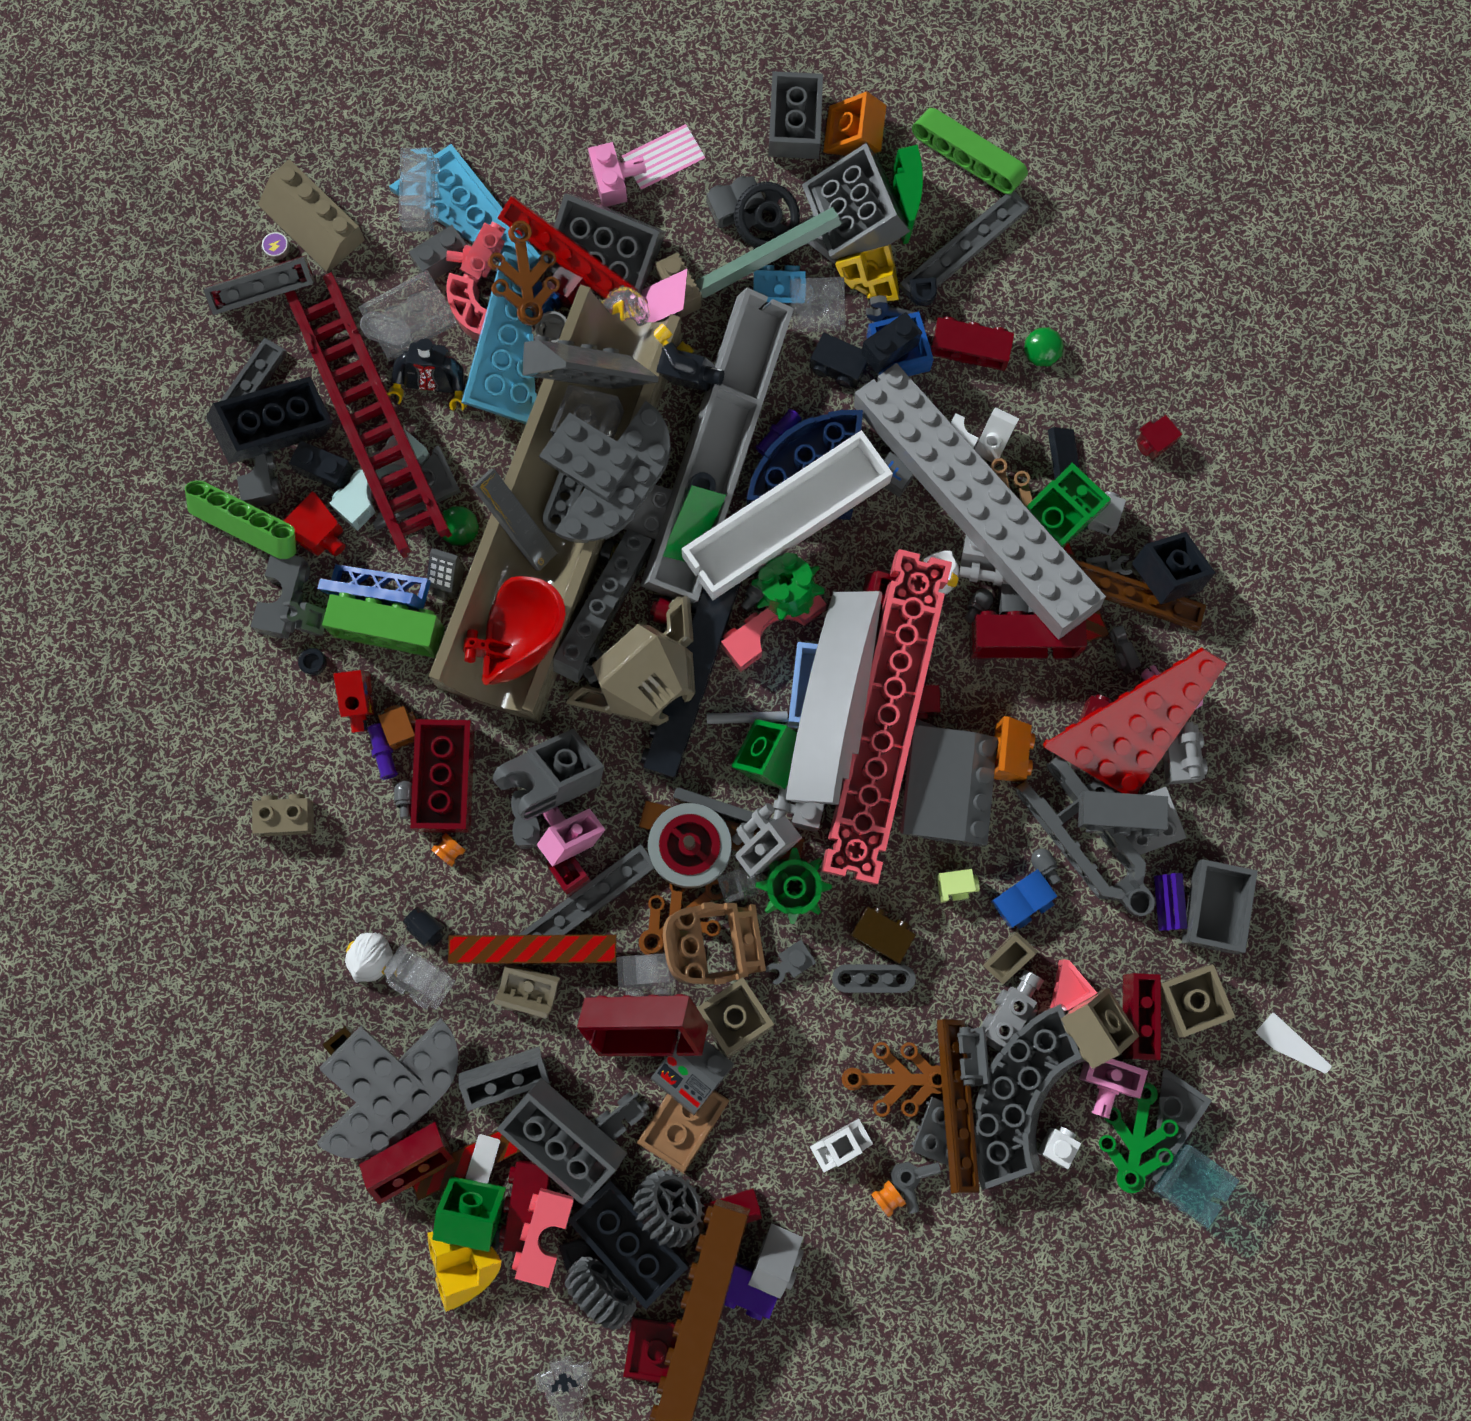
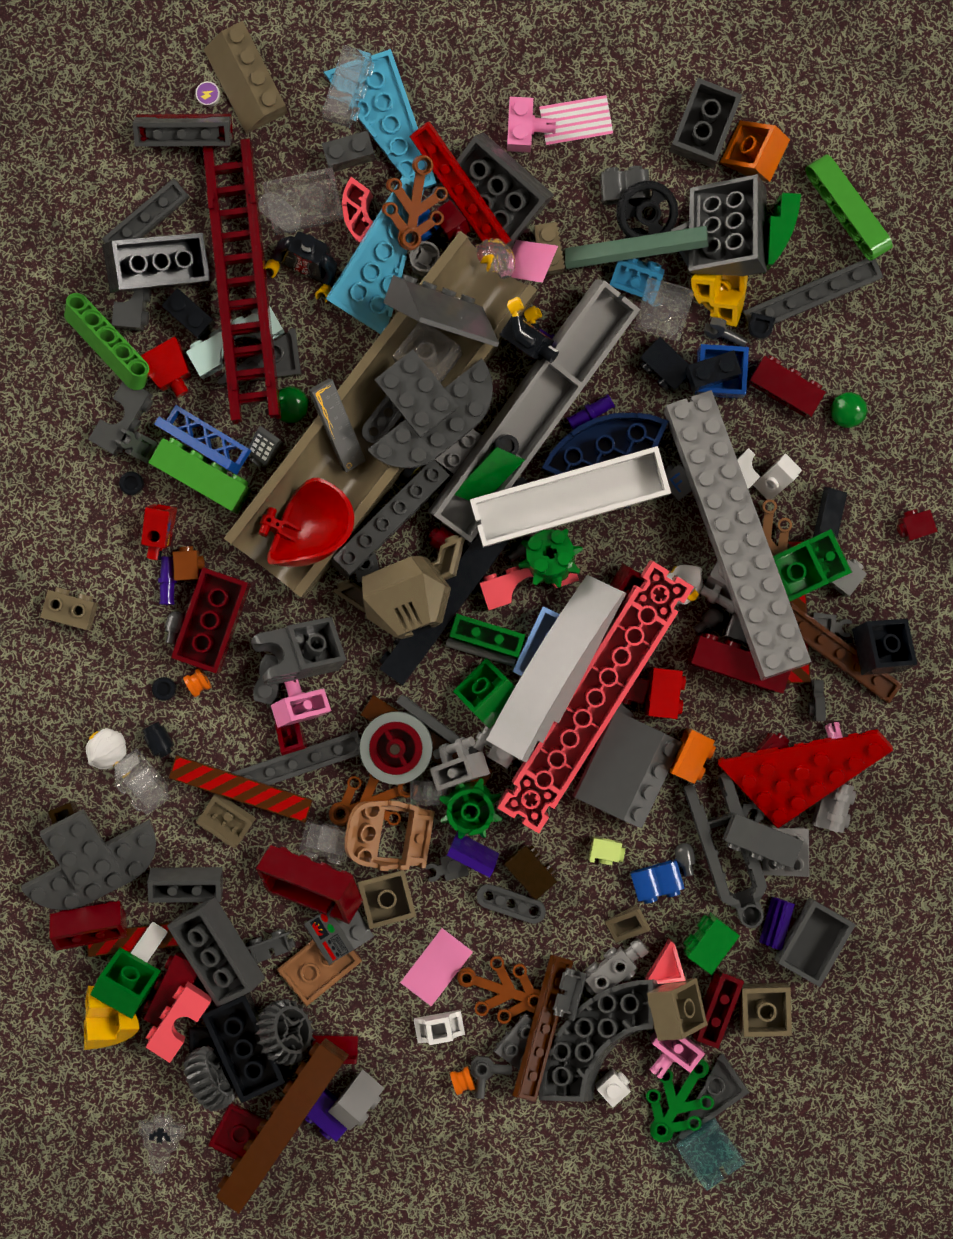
camera: 15 degrees right, 10 degrees up
(414, 870) = (164, 688): none -> black tile
(475, 257) = (380, 169): coral brick -> none
(748, 694) = (487, 635): none -> green brick
(814, 935) = (473, 855): none -> dark purple tile
(815, 1080) = (436, 967): none -> bright pink sticker
(959, 691) = (664, 693): none -> red brick
(1107, 945) = (710, 942): none -> green brick
(1286, 1041) = (830, 1064): white sticker -> none

